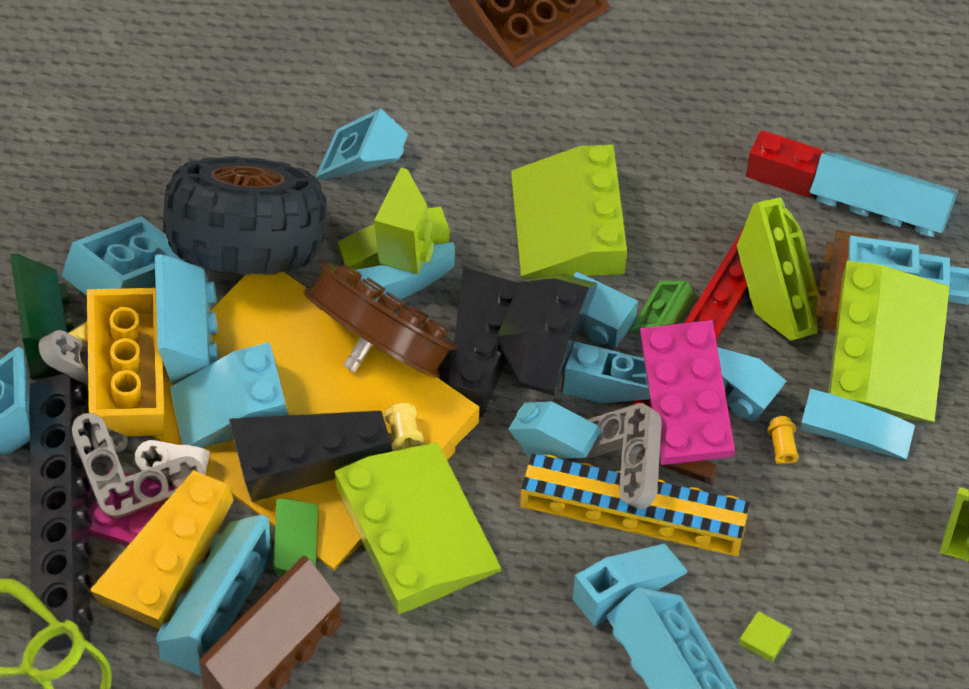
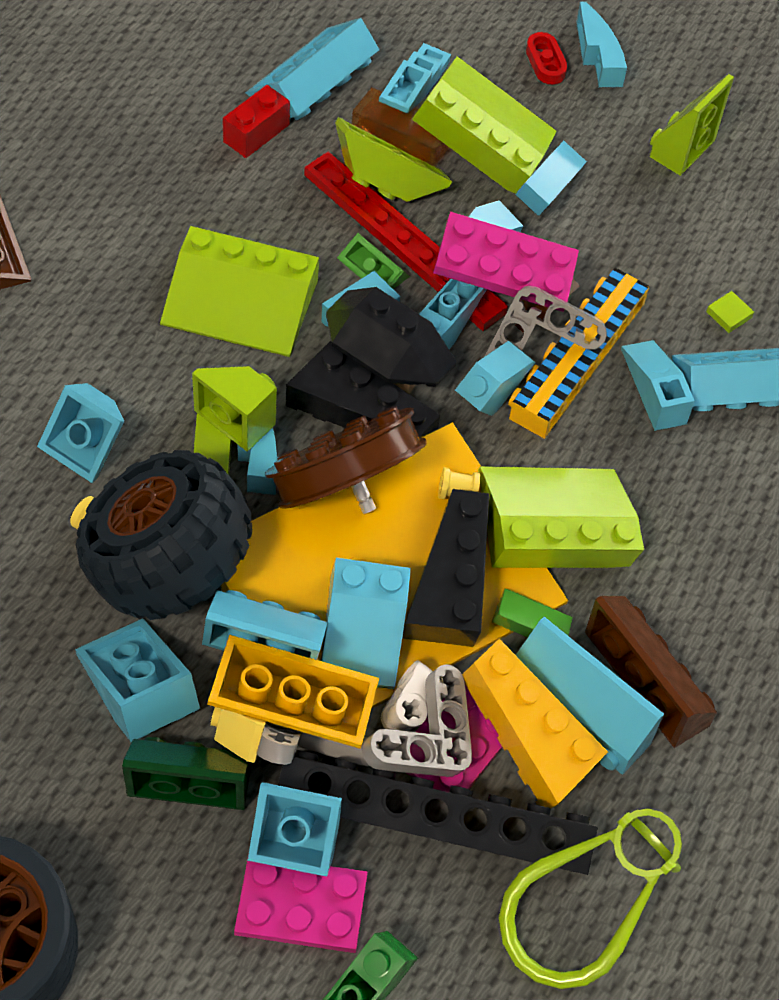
camera: 75 degrees left, 5 degrees up
(782, 434) = (545, 230): yellow pin -> none

